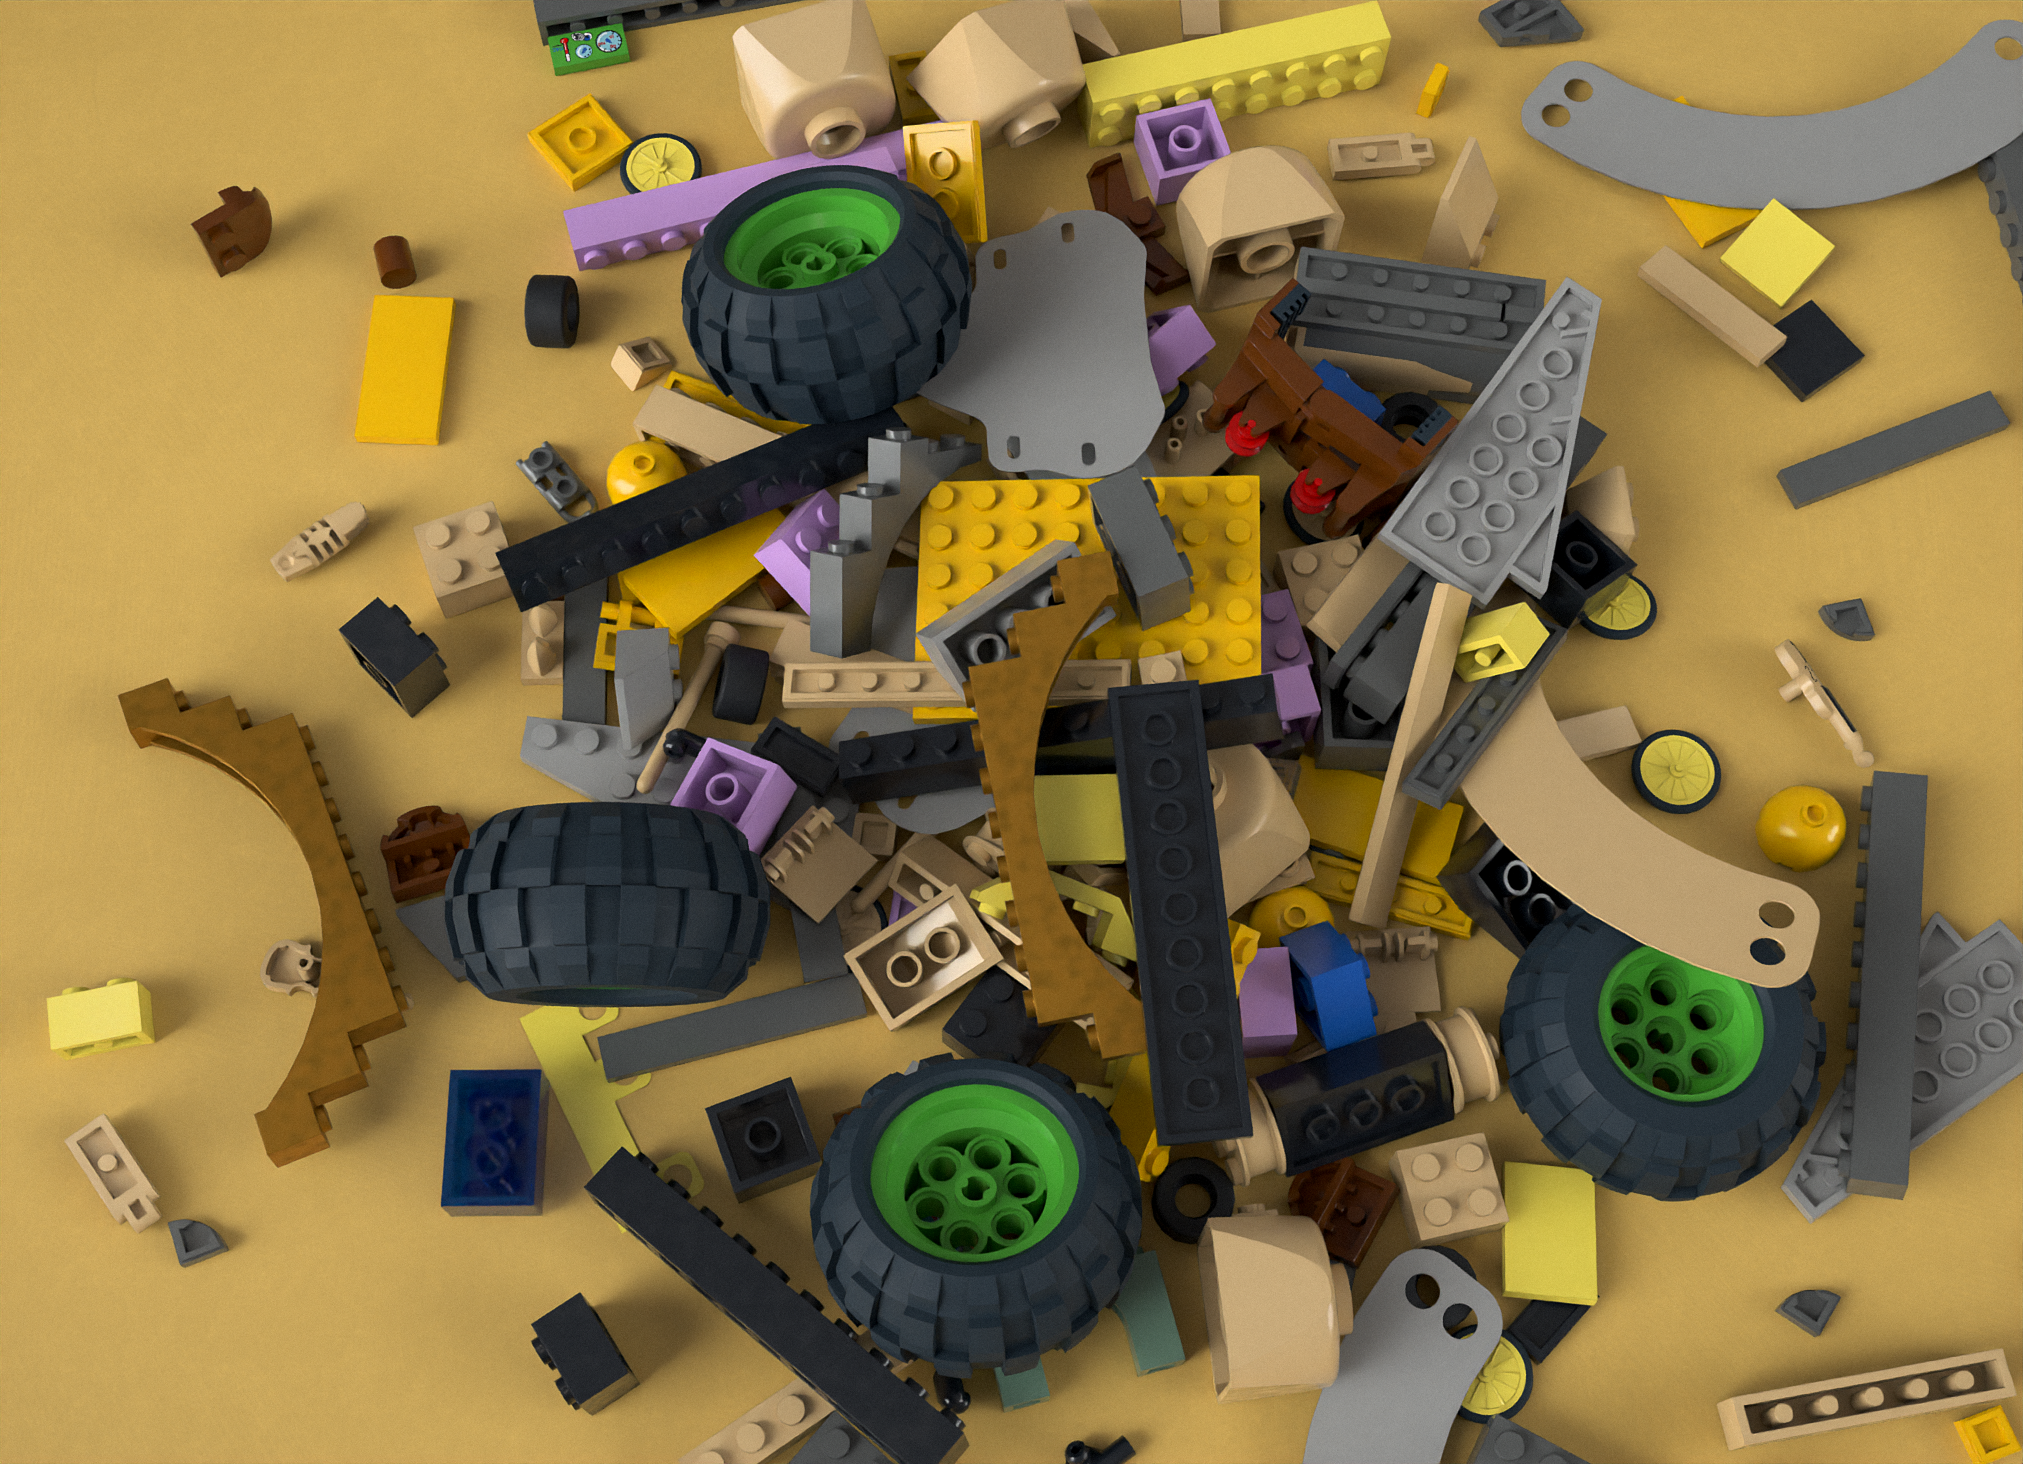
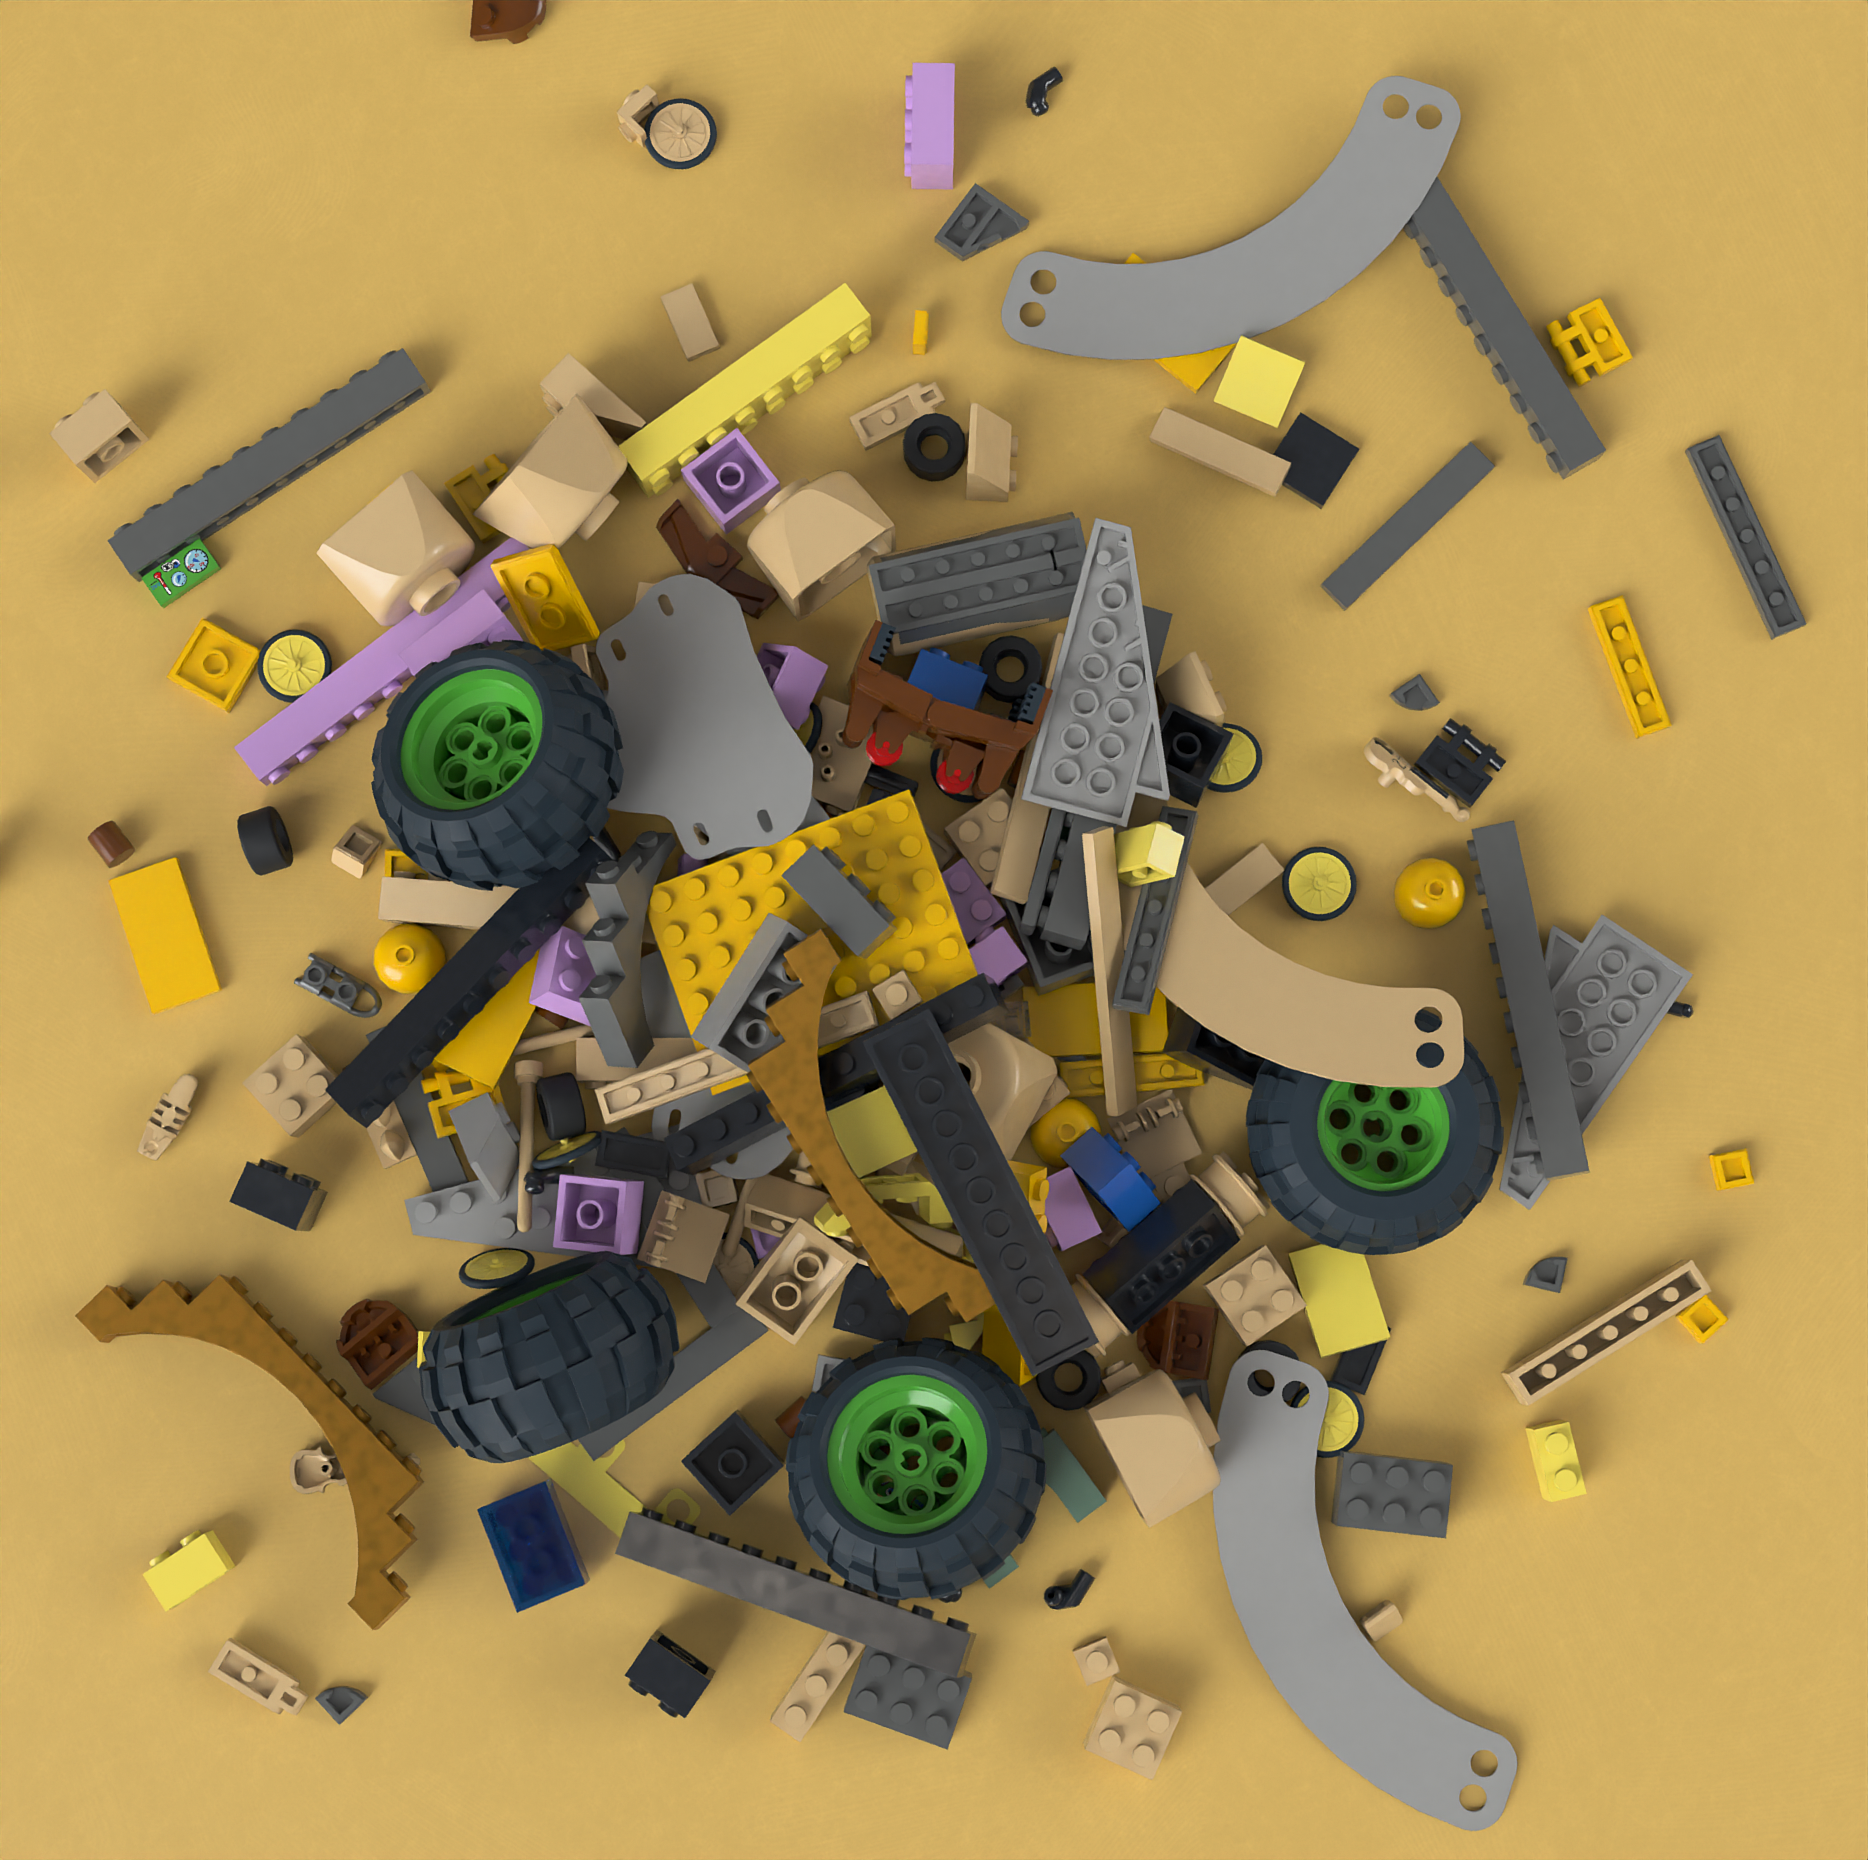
camera: 20 degrees left, 15 degrees up
(726, 727) = (567, 1150): none -> wheel
(1409, 177) = (932, 425): none -> black tyre
(1871, 709) = (1454, 770): none -> black plate

